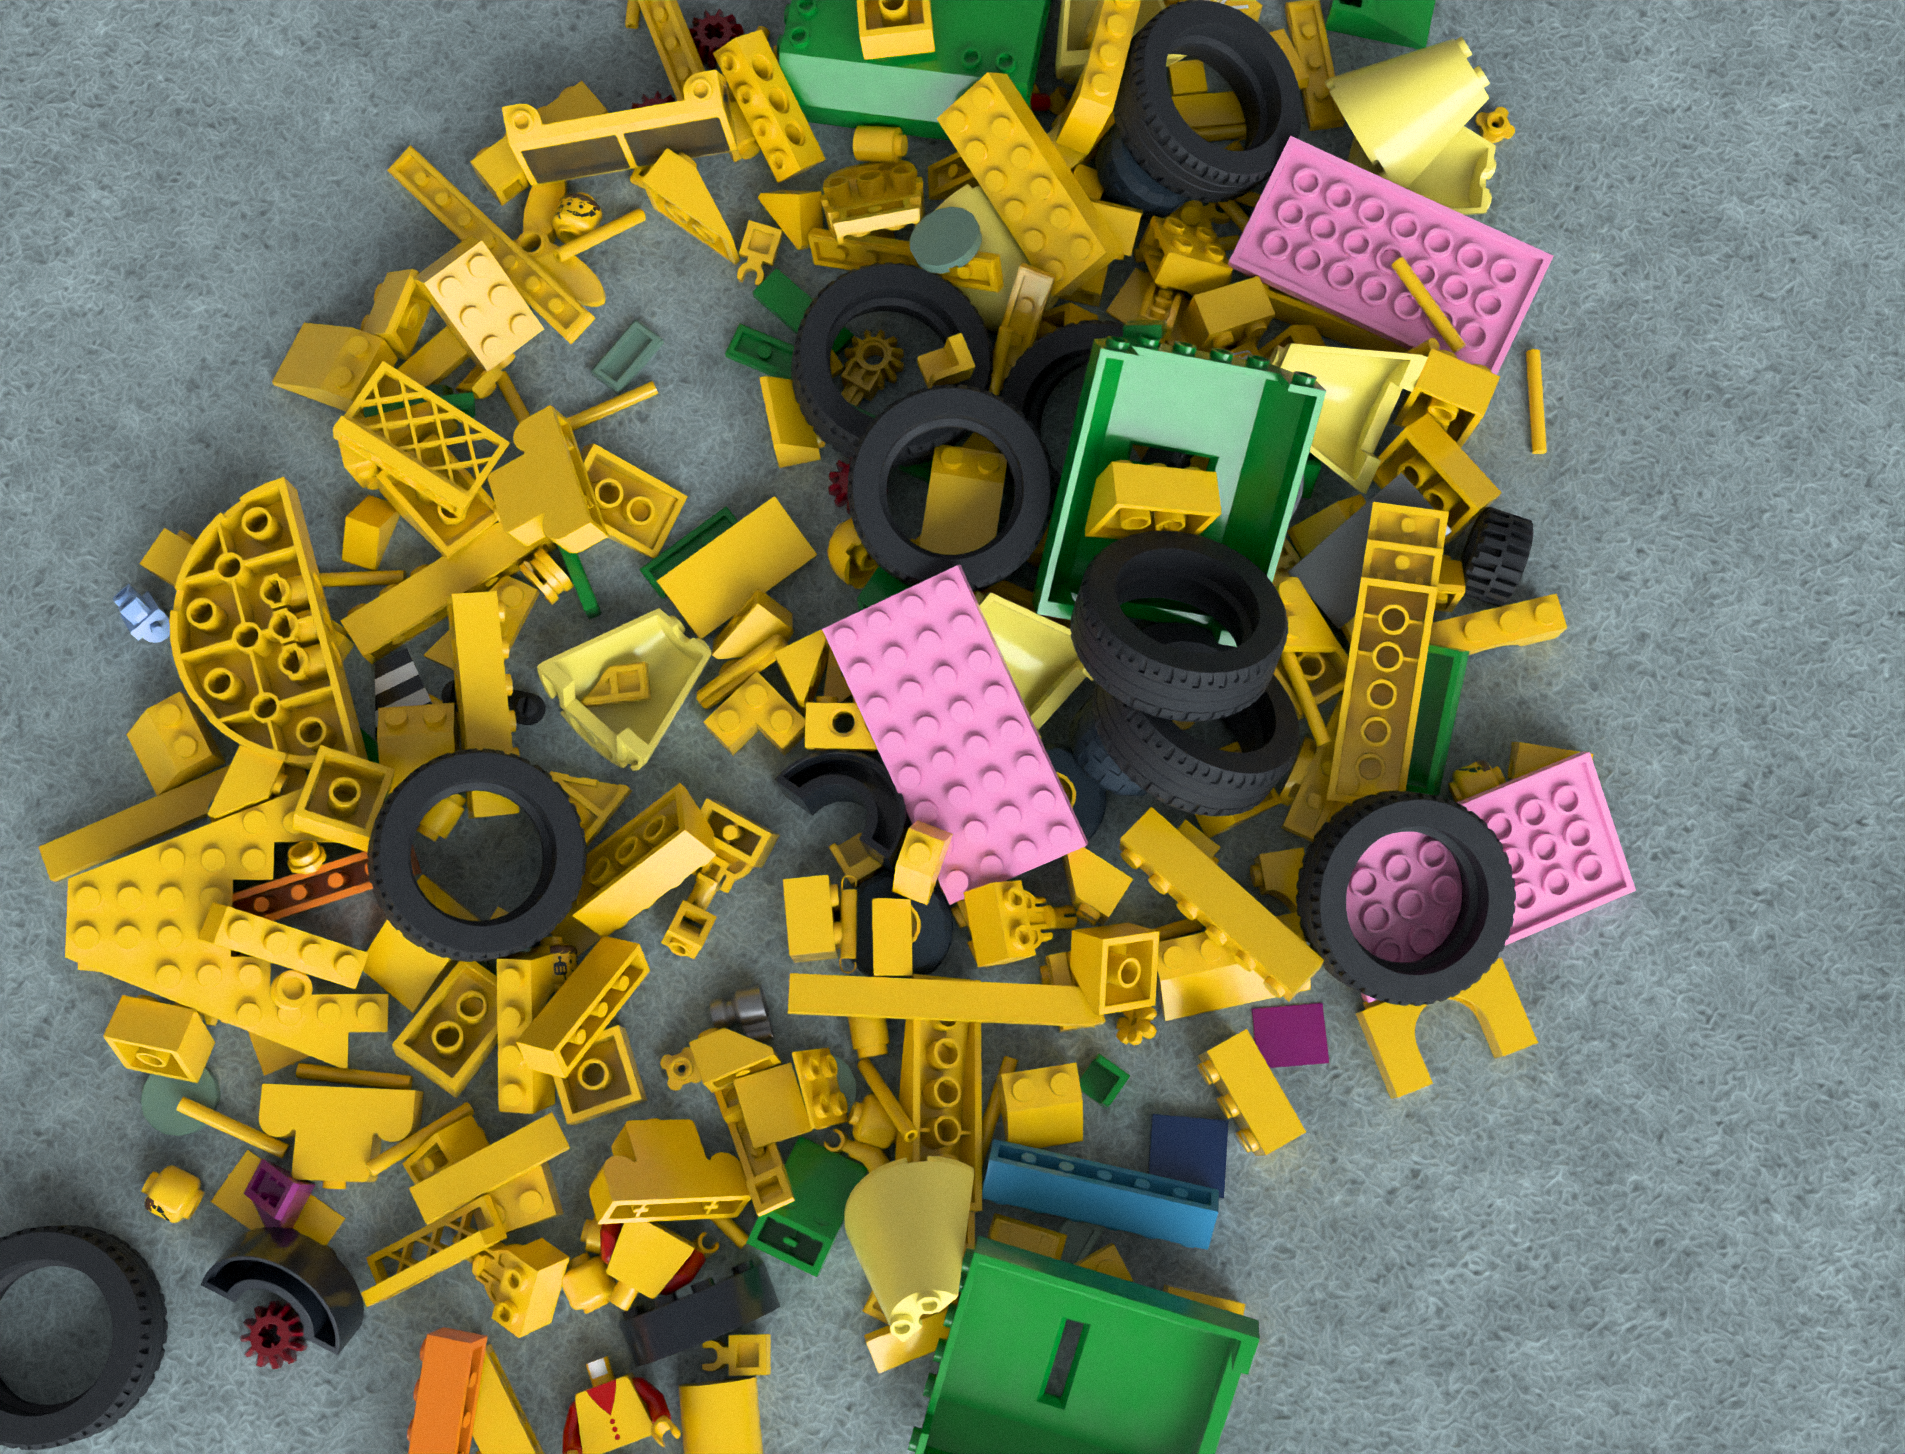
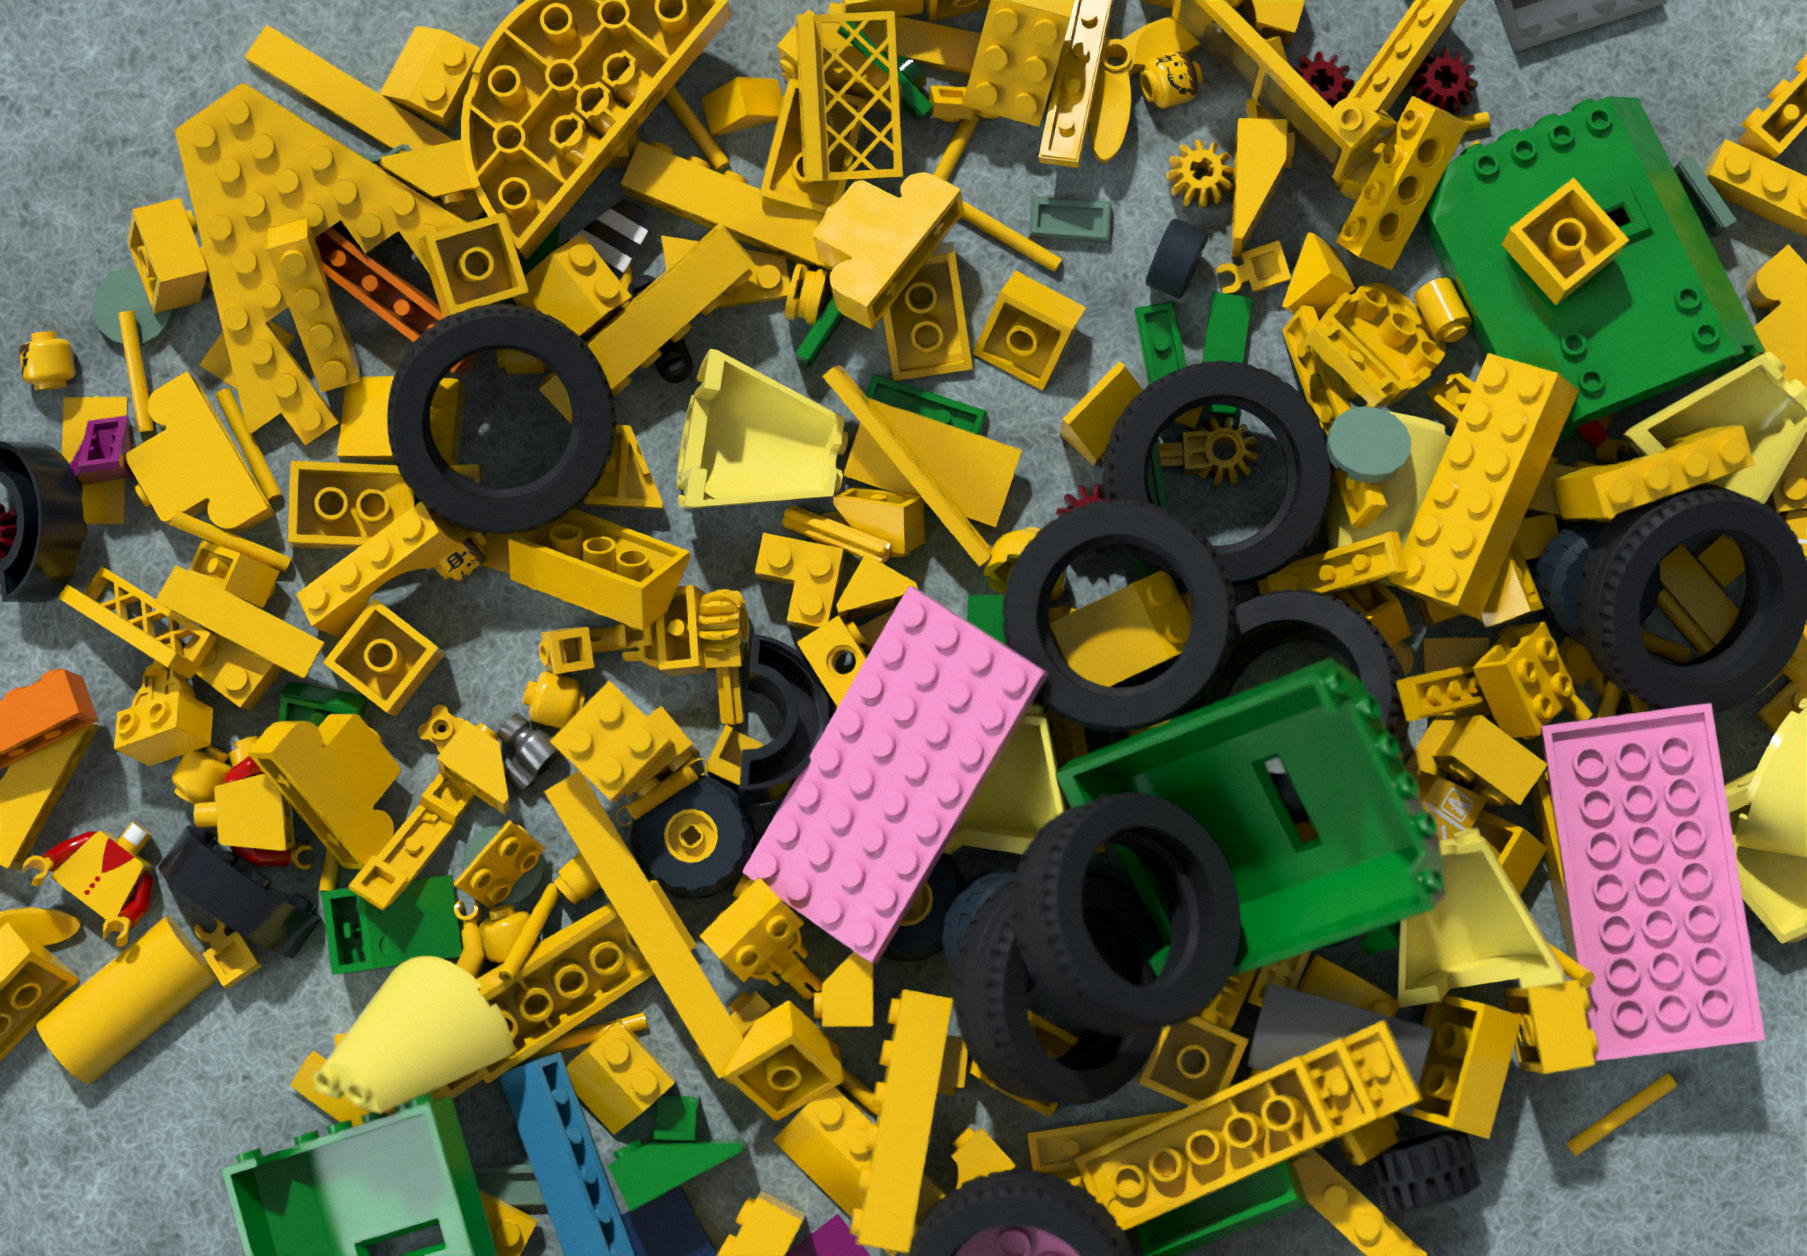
camera: 60 degrees right, 5 degrees up
(291, 989) = (280, 339): yellow tile -> none
(306, 857) = (403, 268): yellow plate -> none
(583, 1006) = (433, 605): yellow brick -> none
(592, 1155) = (315, 703): none -> green slope
(599, 235) = (1167, 112): yellow piece -> none
(620, 685) = (751, 433): yellow tile -> none
(674, 241) = (1211, 184): none -> yellow gear
(688, 436) = (1028, 330): none -> yellow slope
(711, 297) = (1176, 258): none -> black wheel
(719, 966) = (553, 699): none -> yellow head
(727, 581) = (908, 464): none -> yellow tile
(770, 809) = (726, 647): none -> yellow gear
(772, 1105) = (458, 830): yellow window -> none
(786, 931) = (611, 742): none -> yellow brick
(892, 937) = (674, 839): yellow slope -> none
(920, 861) = (760, 819): yellow slope -> none
(948, 364) = (1244, 527): yellow panel -> none
(999, 357) = (1288, 574): yellow bar -> none
(1027, 1236) = (488, 1142): yellow tile -> none
(1134, 1115) = (662, 1165): none -> green slope
(1136, 1025) = (747, 1115): yellow plant -> none
(1150, 327) = (1393, 695): green tile -> none
(1152, 498) = (1233, 811): yellow slope -> none
(1298, 771) = (1092, 1114): yellow tile -> none
(1305, 623) = (1227, 1021): yellow wing -> none
(1305, 698) = (1160, 1072): yellow bar -> none
(1428, 305) = (1628, 948): yellow bar -> none

